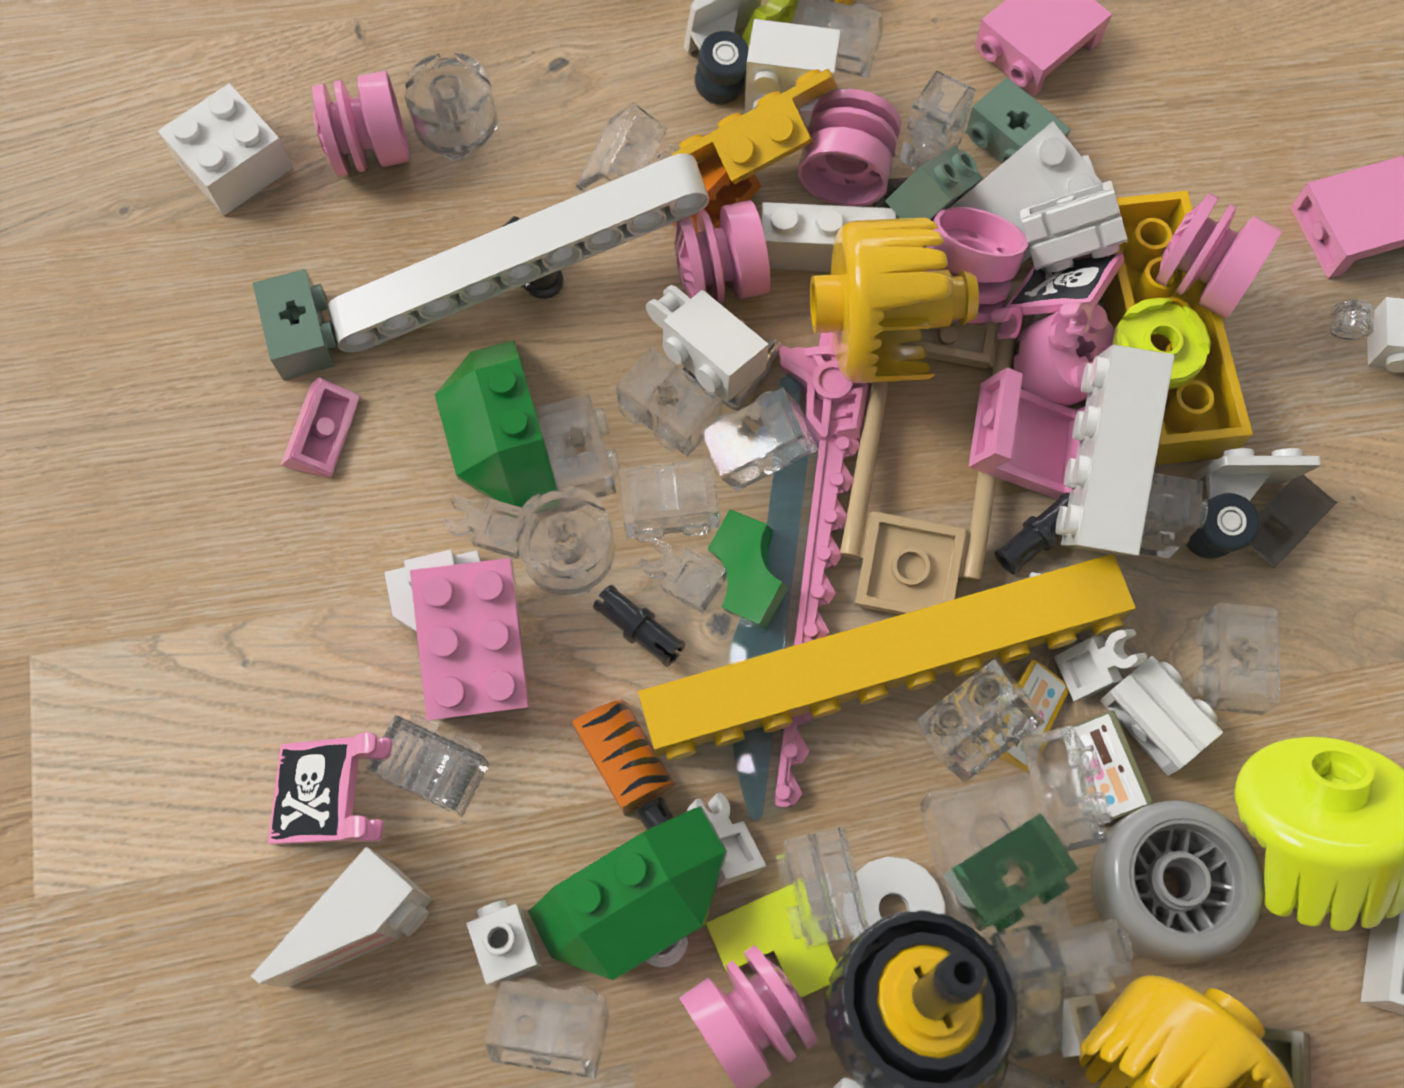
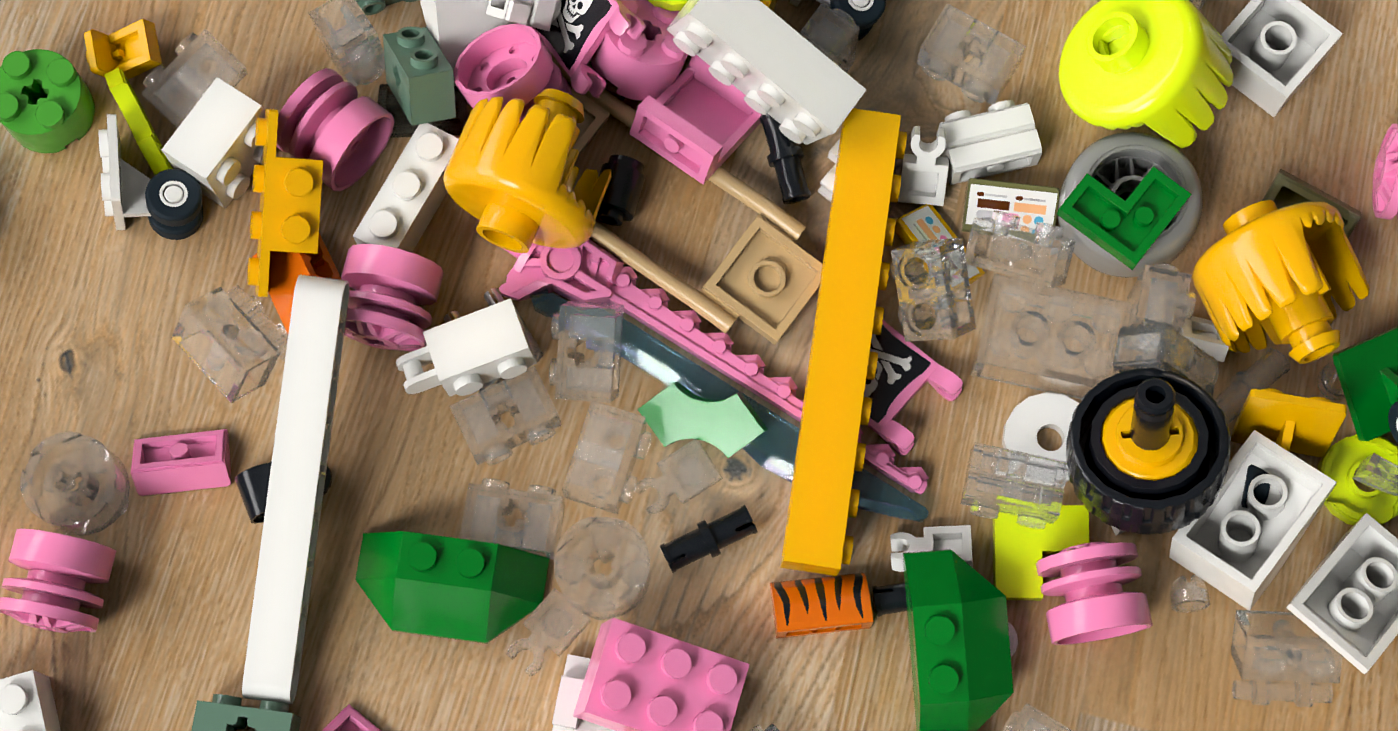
camera: 65 degrees left, 5 degrees up
(511, 178) = (181, 462): none -> bright pink slope
(877, 730) = (898, 377): none -> flag
(925, 402) = (622, 191): none -> black brick
(1039, 858) = (1066, 351): clear green brick -> none
(1145, 881) = (1122, 226): none -> green plate

